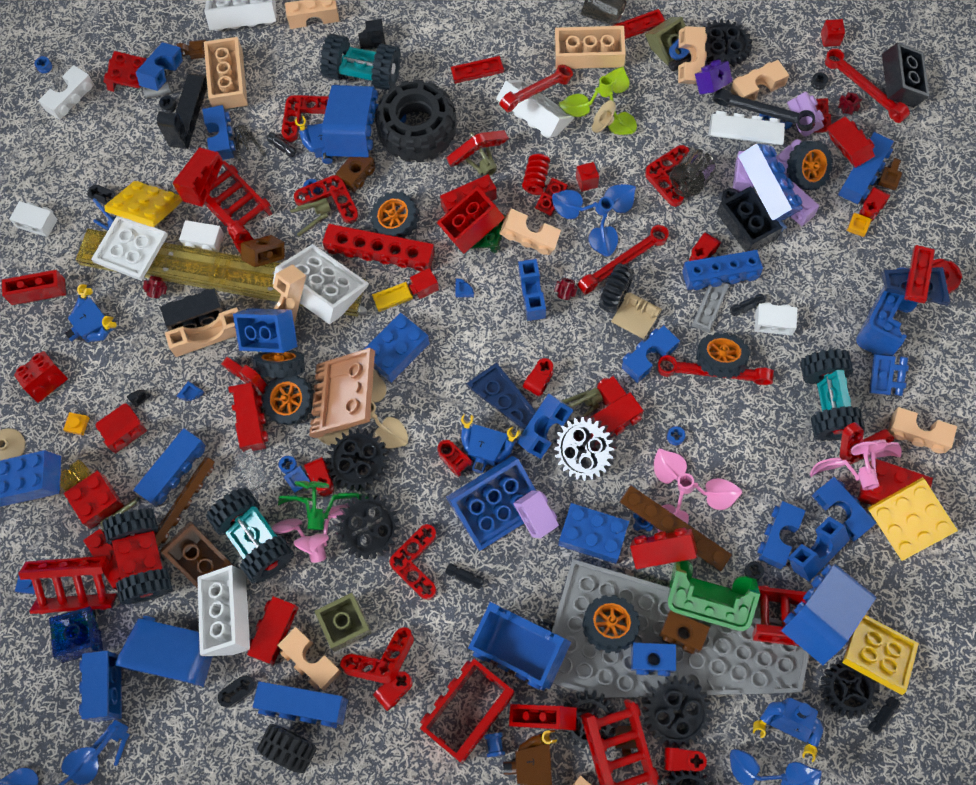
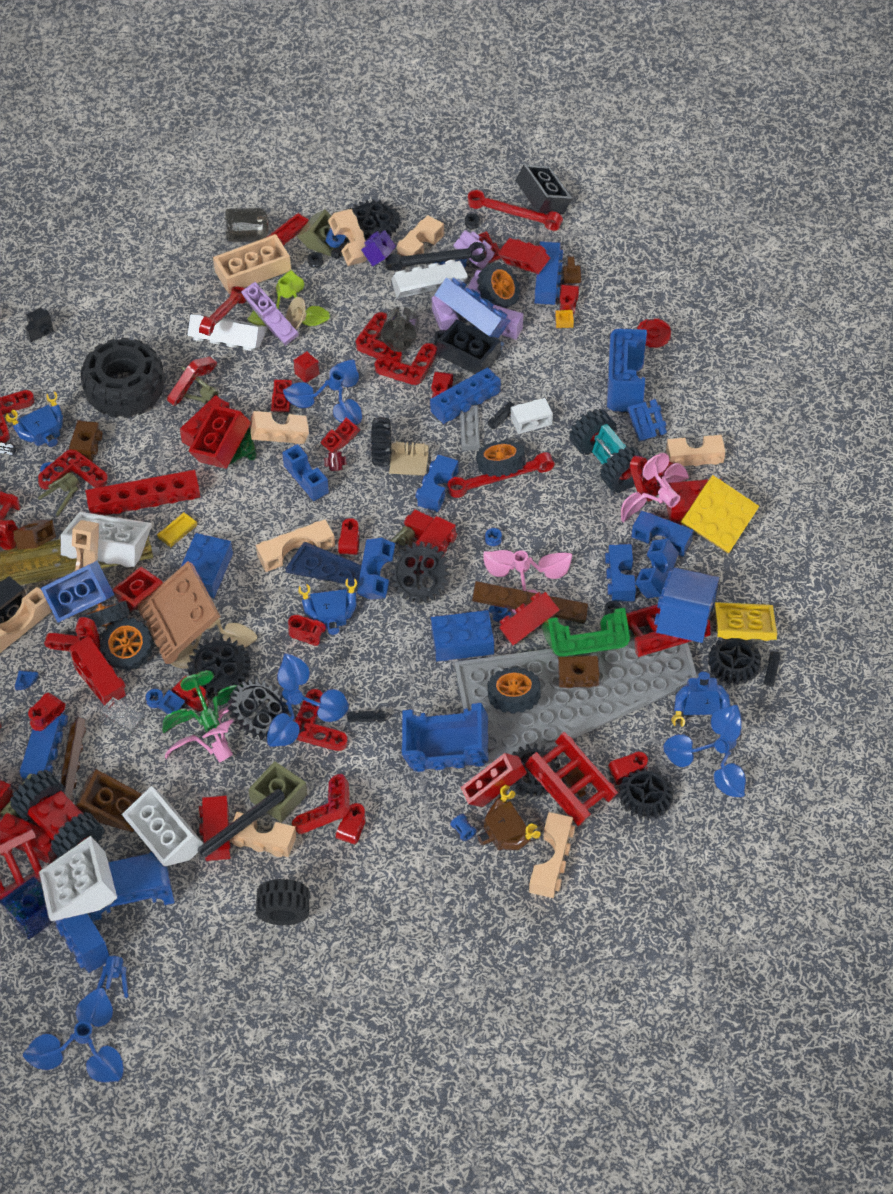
camera: 30 degrees left, 15 degrees down
(112, 643) = (78, 882): none -> white slope
(181, 440) = (45, 710): none -> red piece
(233, 687) = (212, 892): black beam -> none
(251, 535) = (154, 758): black plate -> none
(289, 645) = (241, 823): none -> black axle
(300, 703) = (287, 860): blue brick -> none
(322, 347) = (136, 588): none -> red slope
(341, 60) = (41, 349): black plate -> none
(348, 120) = (62, 397): blue windscreen -> none
(390, 201) = (137, 450): black wheel -> none
(406, 516) = (290, 675): none -> blue plant
(423, 283) = (202, 506): red brick -> none
(463, 289) = (240, 499): blue tile -> none
(464, 360) = (272, 552): none -> light nougat arch
(477, 69) = (154, 319): red tile -> none
(487, 502) = (364, 648): blue slope -> none
(487, 721) = (434, 775): red hose -> none
(535, 174) = (258, 382): red piece -> none
(536, 514) = (404, 639): lavender brick -> none
(579, 107) = (269, 313): none -> lavender slope
(584, 263) = (341, 436): none -> red slope
(590, 281) = (354, 448): red piece -> none
(648, 69) = (311, 260): none -> black bush
(665, 652) = (570, 693): blue brick -> none
(685, 219) = (413, 370): none -> red beam
(694, 719) = (621, 736): black gear -> none
(832, 32) = (464, 179): red brick -> none
(849, 103) = (507, 228): dark red gear -> none
(896, 282) = (634, 334): dark blue wing -> none
(919, 274) = (631, 326): red tile -> none

